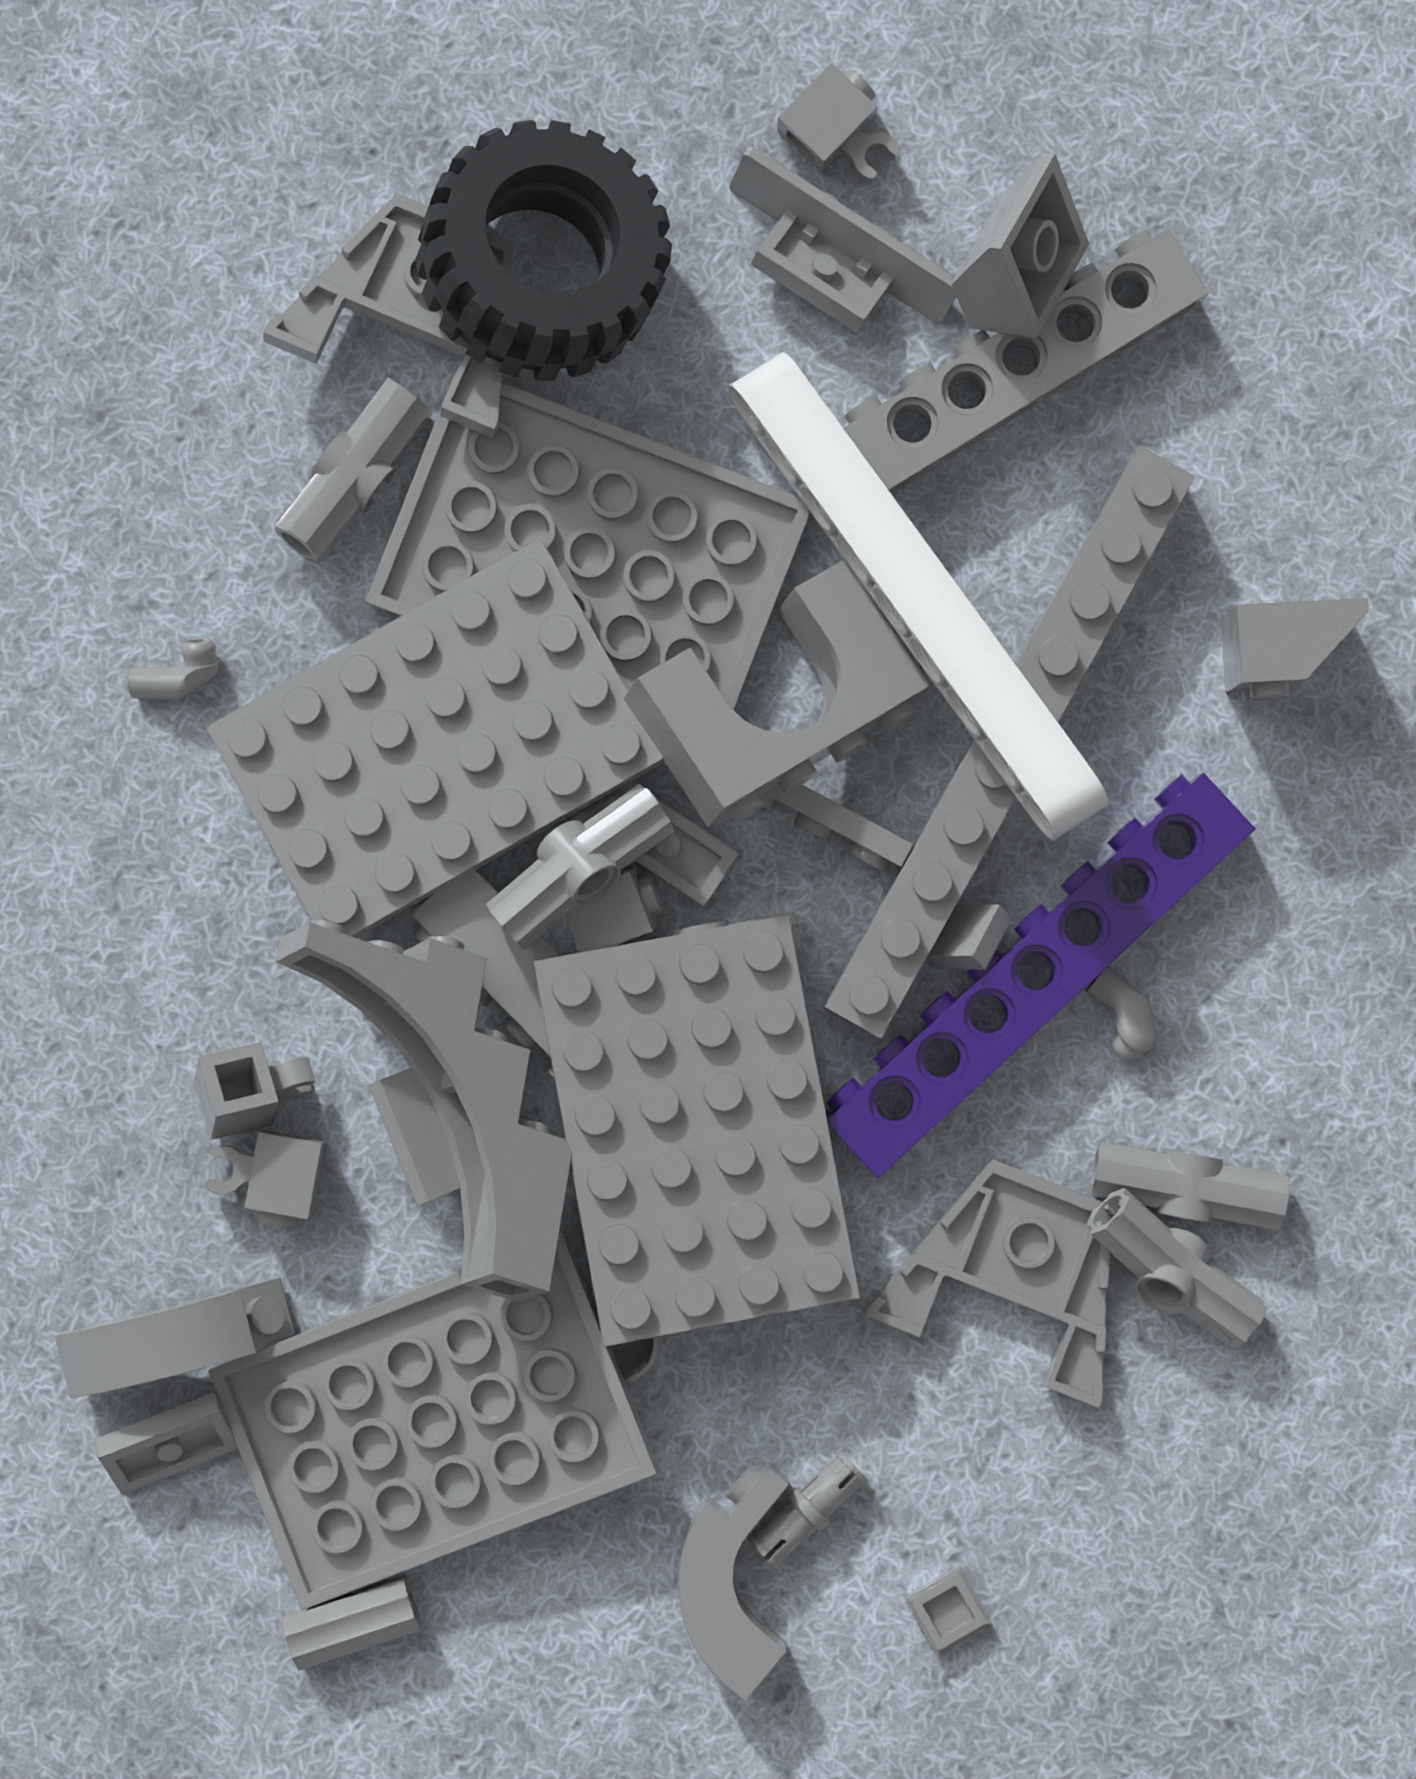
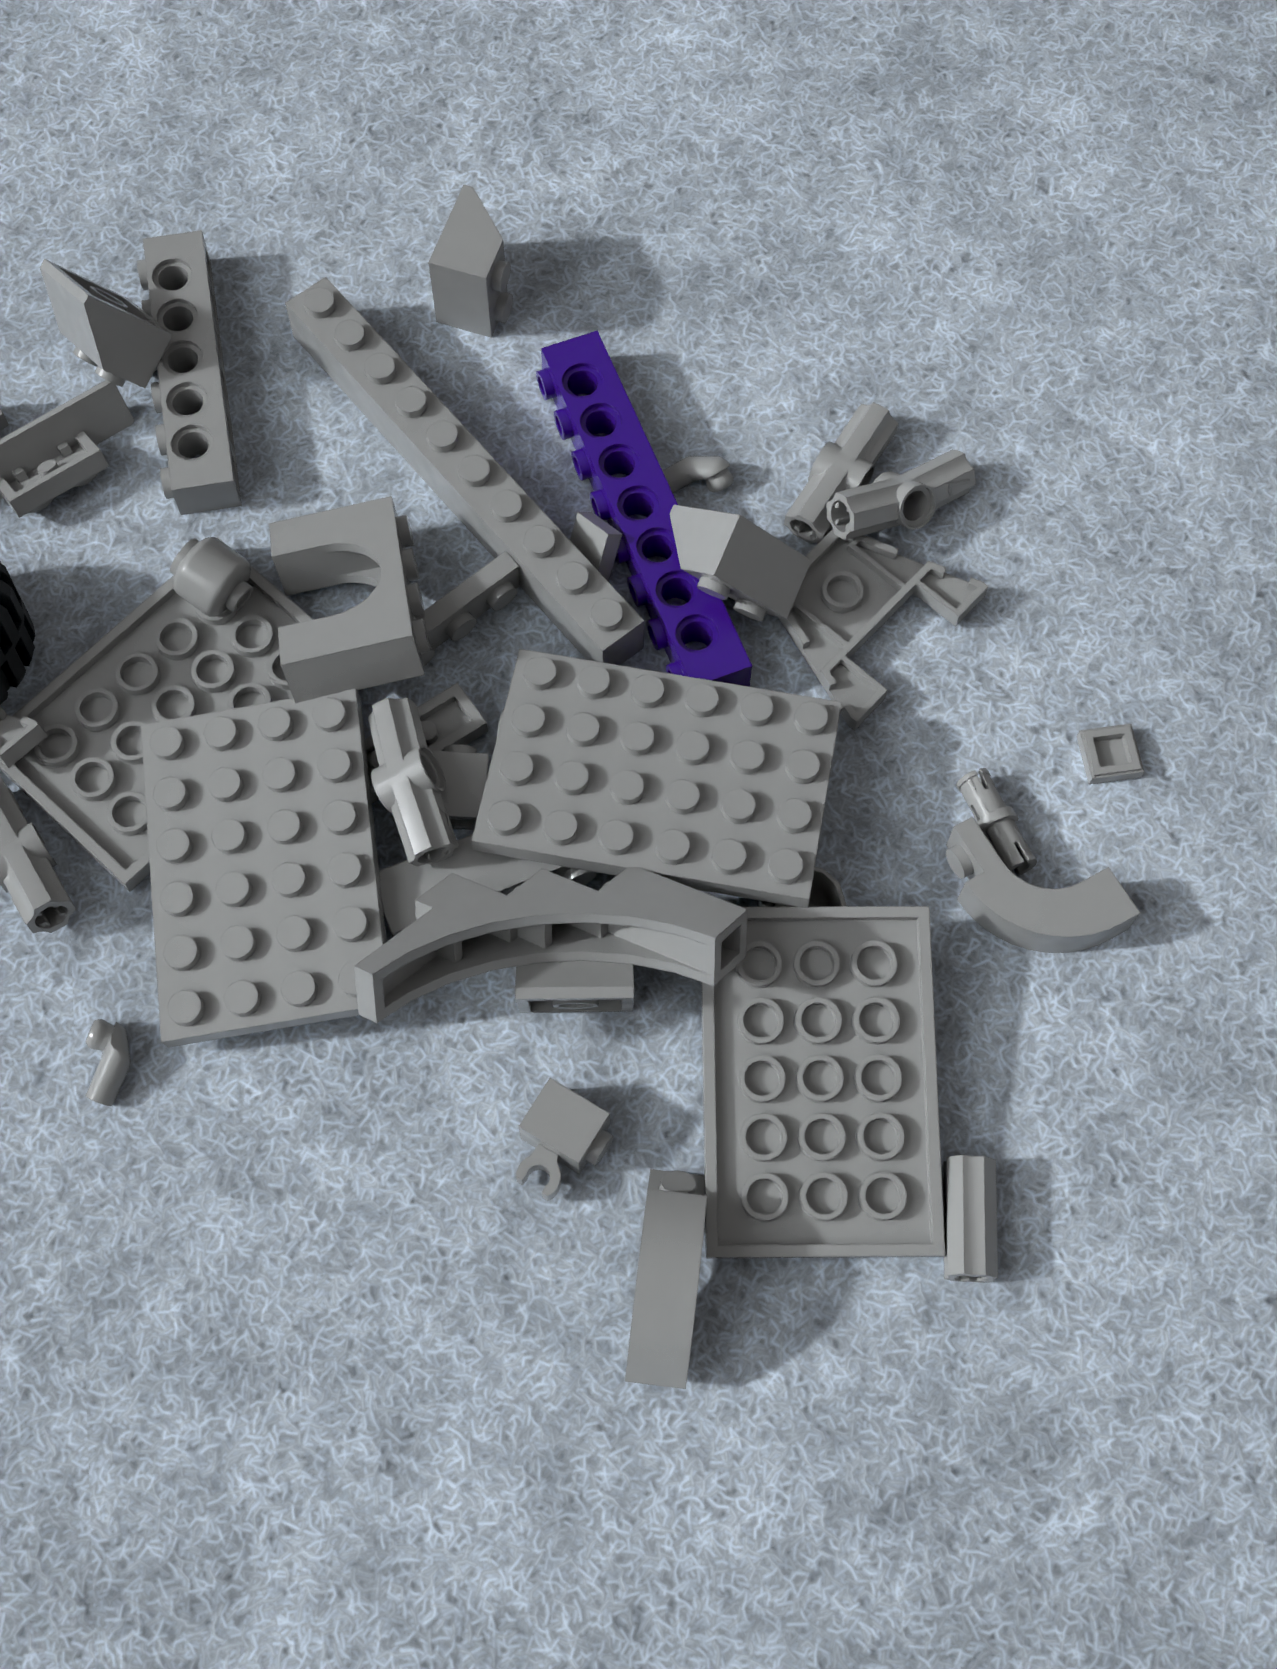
camera: 75 degrees left, 20 degrees down
(166, 1443) = (757, 1319): light grey plate -> none
(243, 1092) = (477, 1129): light grey brick -> none
(746, 530) = (211, 576): none -> light grey head
(919, 597) = (320, 471): white beam -> none
(994, 1114) = (738, 561): none -> light grey slope

